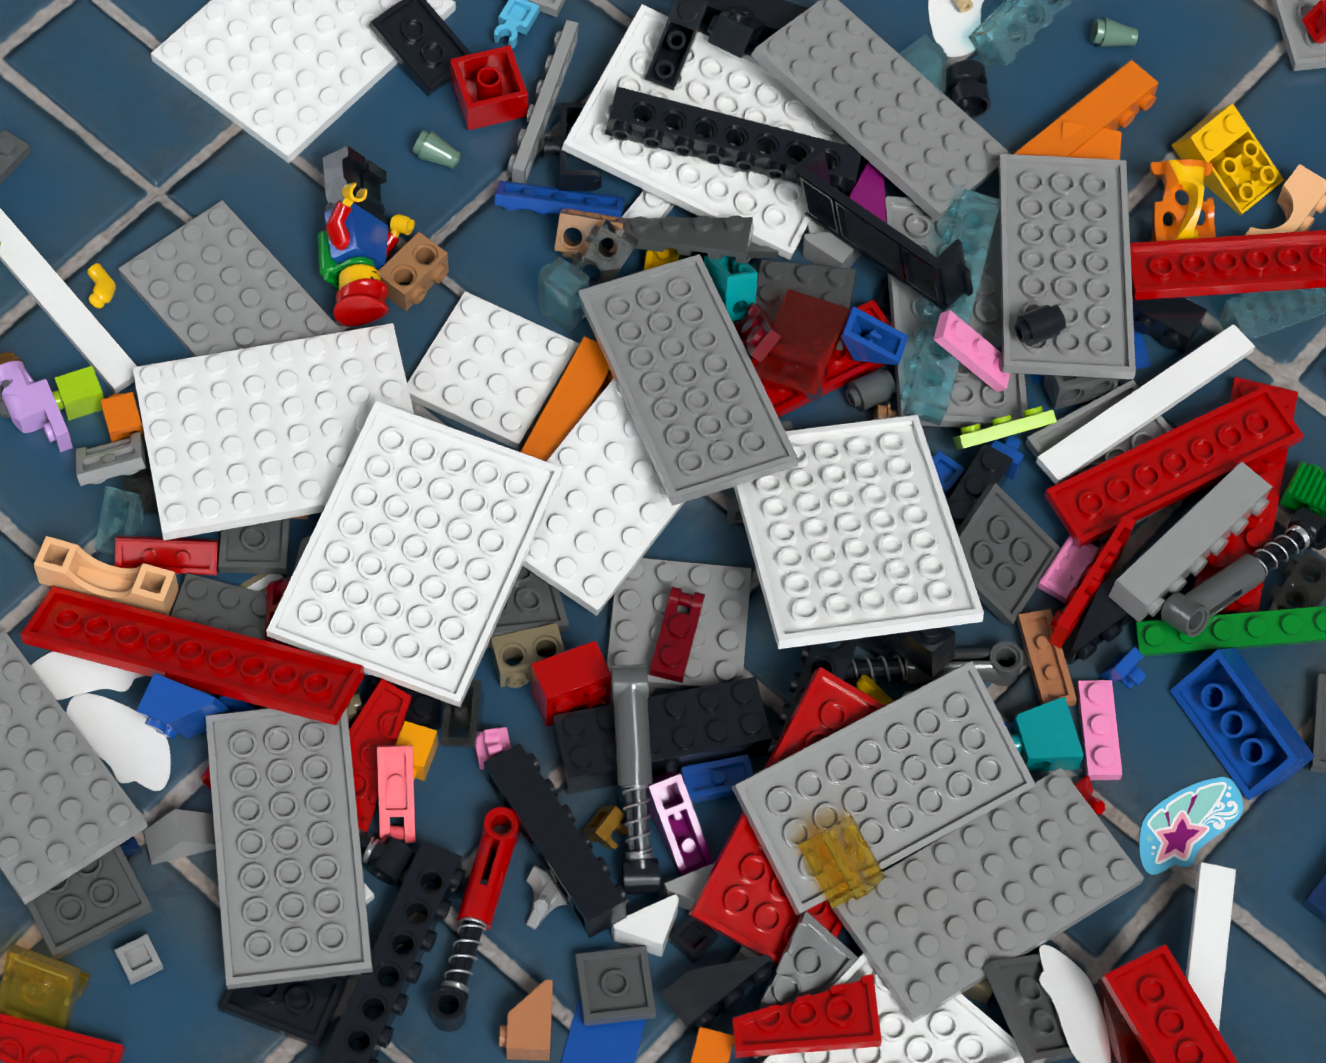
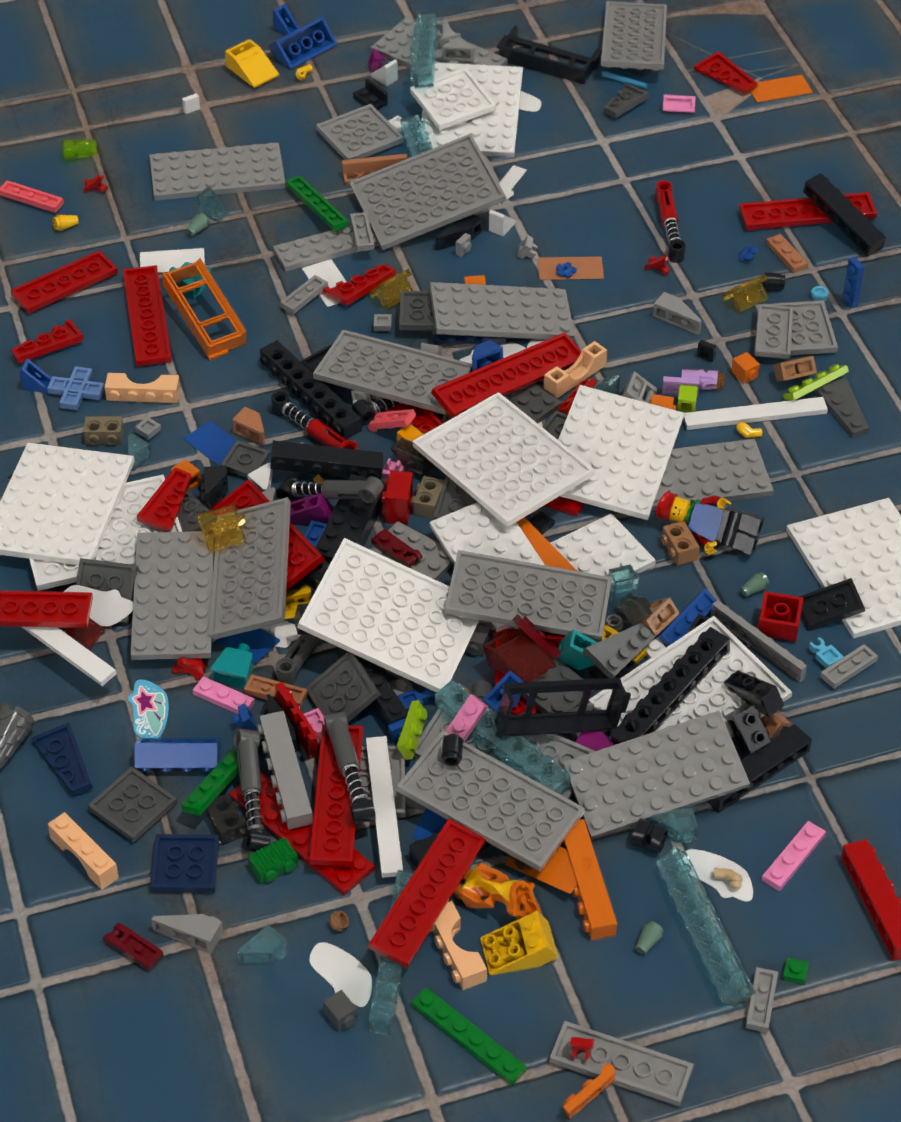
camera: 125 degrees right, 15 degrees down
(1084, 506) = (337, 728): none -> piece

